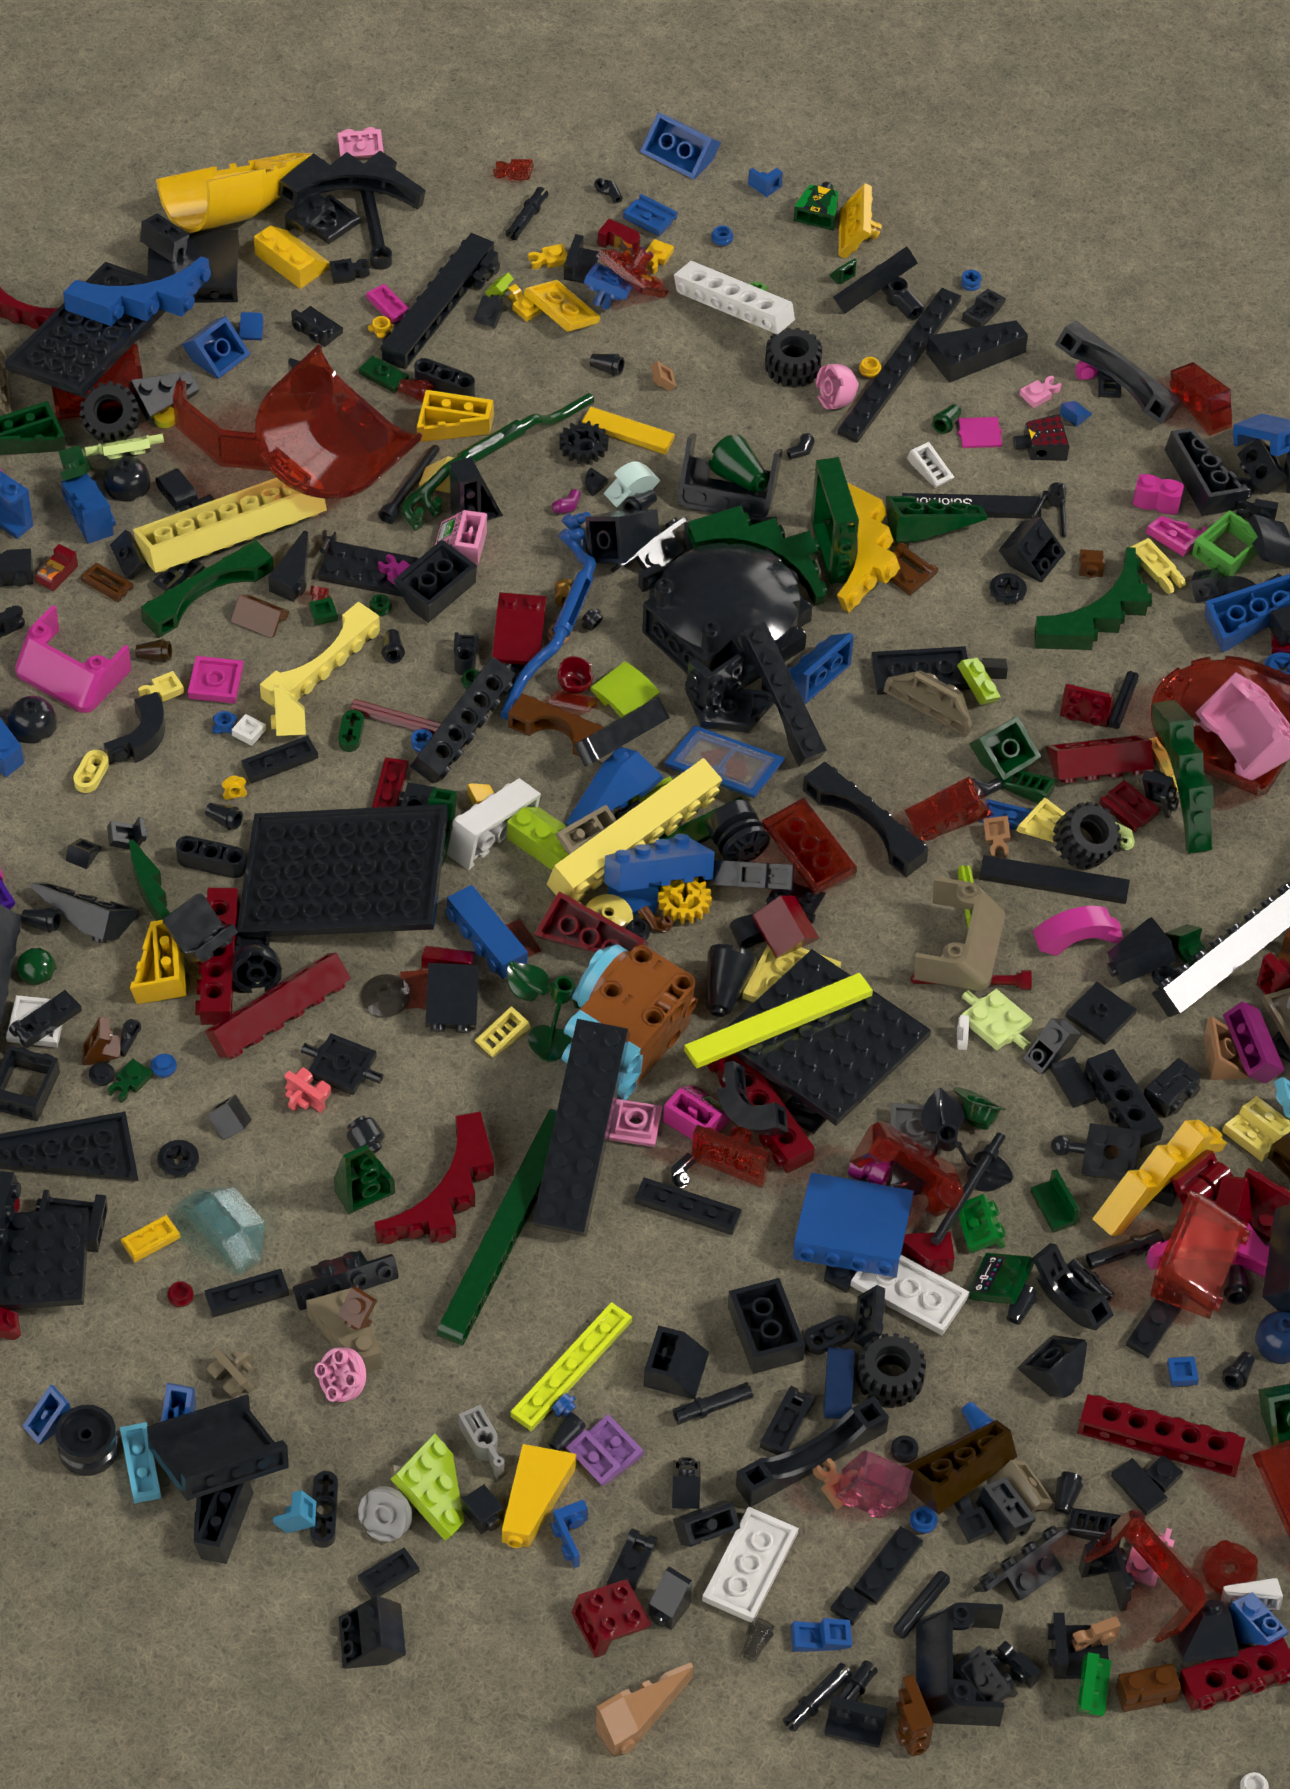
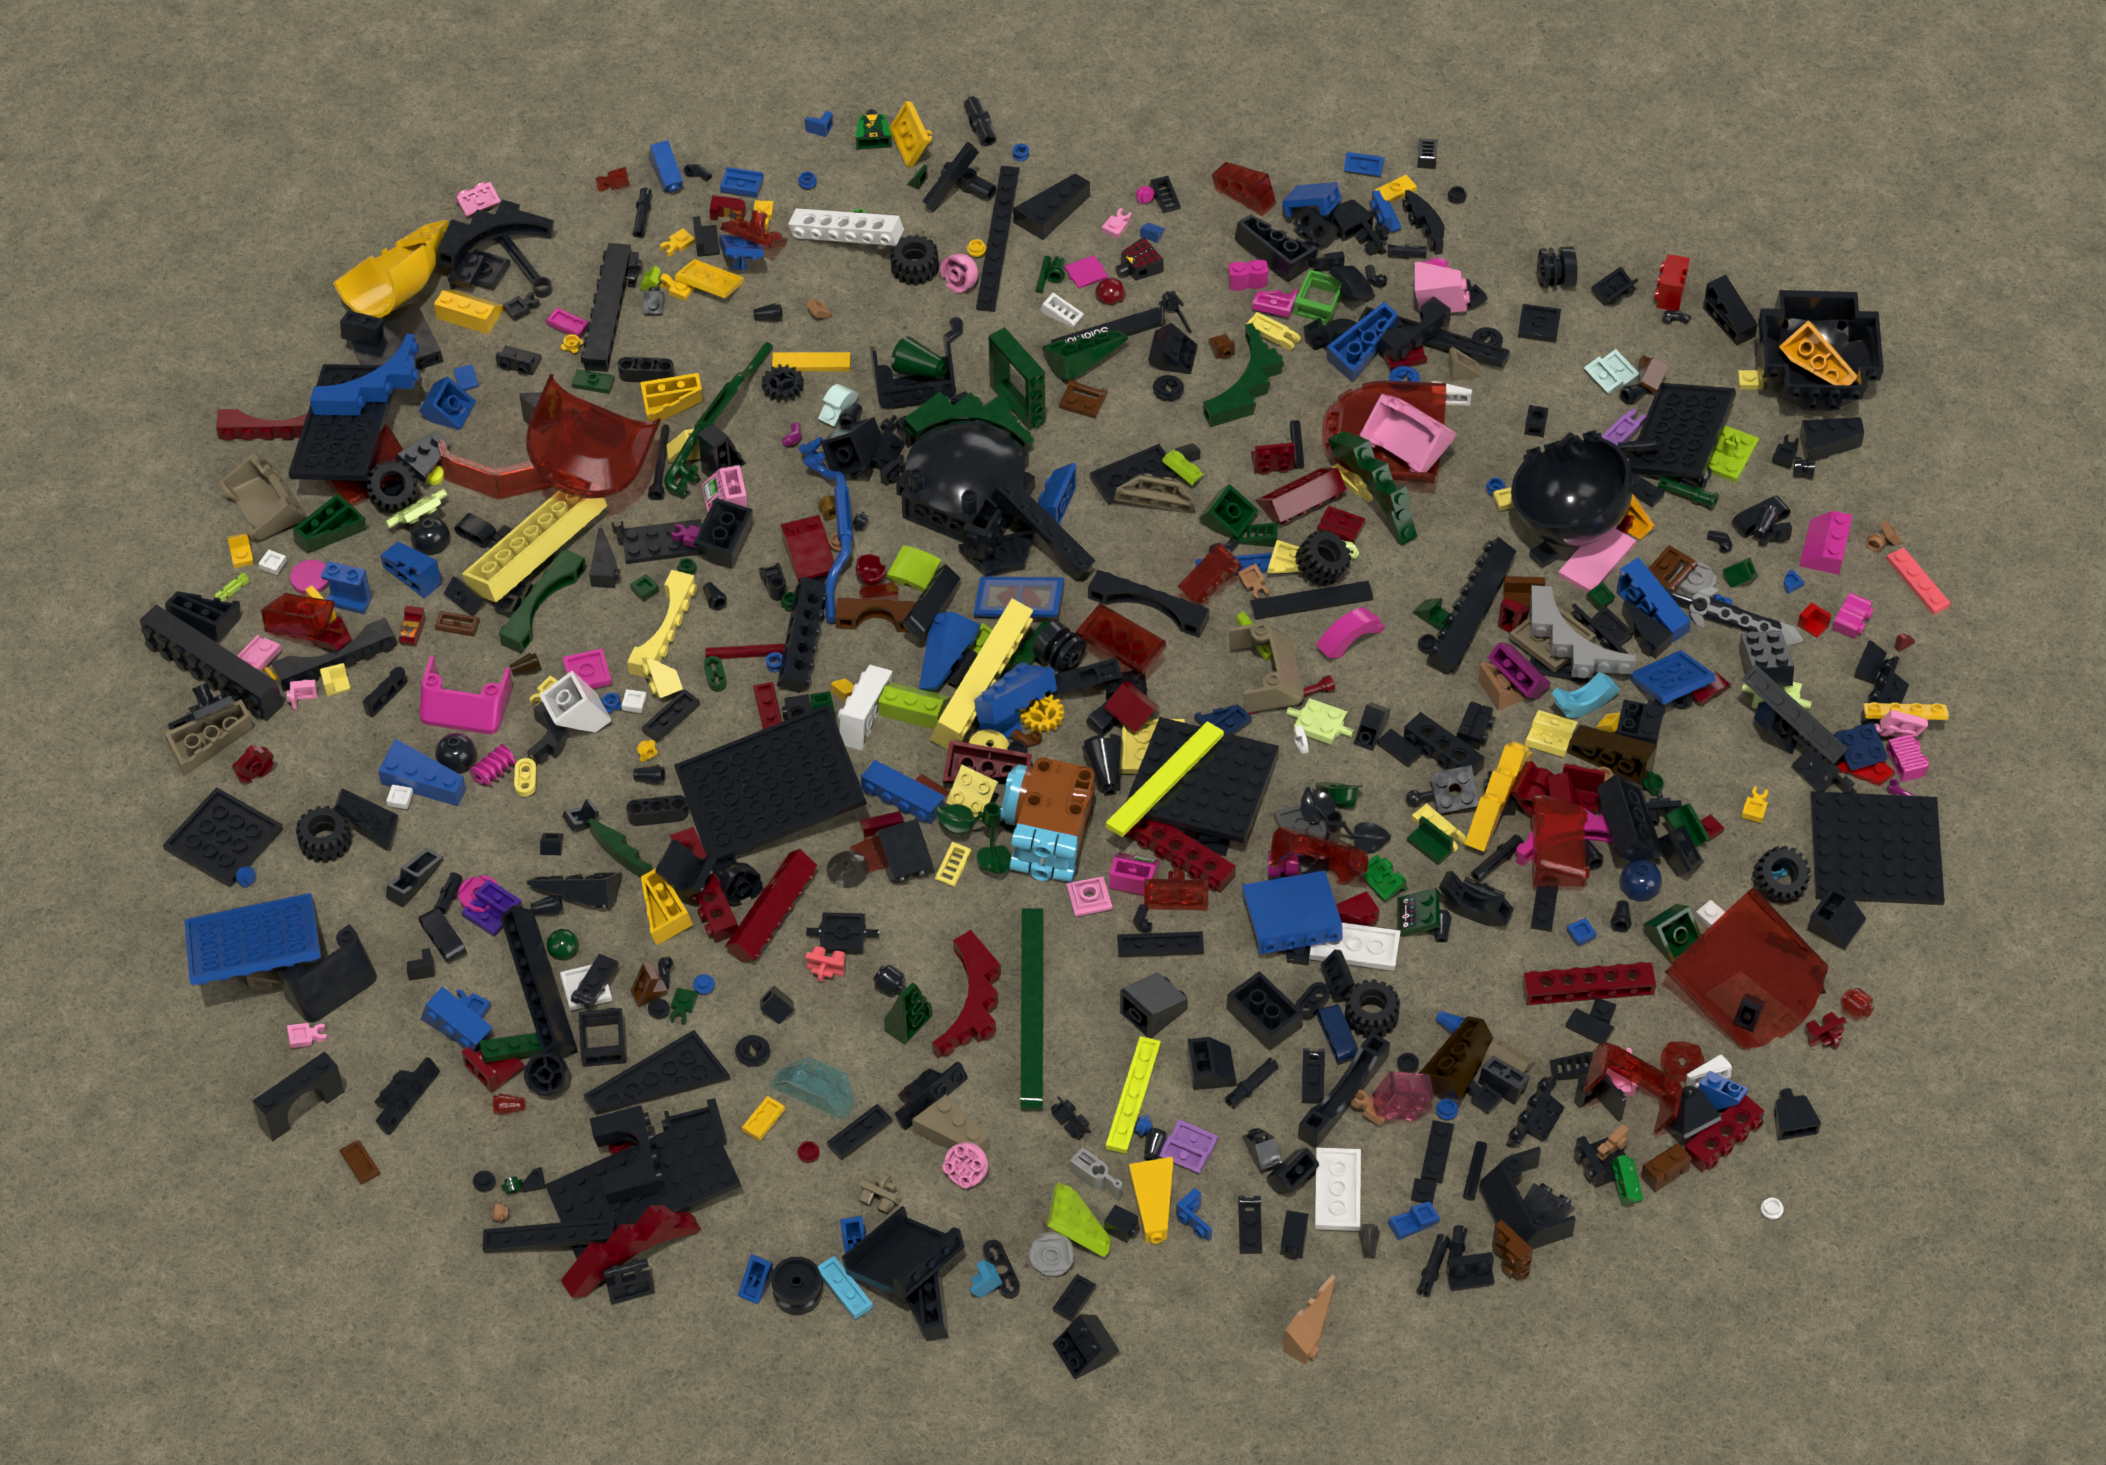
camera: 20 degrees left, 0 degrees up
(62, 746) = (491, 765): none -> dark pink piece
(74, 462) = (384, 537): dark green slope -> none
(179, 710) = (575, 704): none -> white slope
(258, 615) = (594, 608): reddish brown panel -> none
(318, 593) = (633, 574): clear red plate -> none
(357, 1309) = (960, 1109): reddish brown bracket -> none
(415, 388) = (627, 384): clear red cone -> none
(486, 1357) = (1076, 1125): none -> black hinge
(561, 955) = (972, 790): none -> light yellow hinge
(574, 172) = (665, 166): none -> blue slope
(581, 1127) = (1059, 912): black brick -> none
(585, 829) = (946, 684): dark tan slope -> none
(595, 481) = (805, 411): black tile -> none
(608, 1615) = (1253, 1265): dark red bracket -> none
(643, 1270) = (1152, 1004): none -> black slope
(679, 146) = (737, 118): blue slope -> none
(761, 1119) = (1185, 859): black arch -> none
(873, 559) = (1058, 400): yellow arch -> none
(888, 980) = (1227, 719): none -> dark blue wing
(927, 423) = (1042, 276): none -> dark green piece
(942, 232) = (980, 121): none -> black piece
(985, 307) = (1041, 172): black slope -> none
(988, 1156) = (1365, 825): black bar -> none
(995, 462) = (1110, 291): none -> dark red hair
(1020, 1666) = (1568, 1187): black plate -> none
(1057, 1365) = (1489, 960): black slope -> none
(1067, 1491) = (1540, 1048): black cone -> none
(1077, 1186) = (1439, 821): none -> light yellow hinge
(1101, 1013) = (1394, 689): black plate -> none
(1140, 952) = (1405, 632): black slope -> none
(1149, 393) = (1147, 178): black arch -> none
(1161, 789) = (1362, 503): black bracket -> none

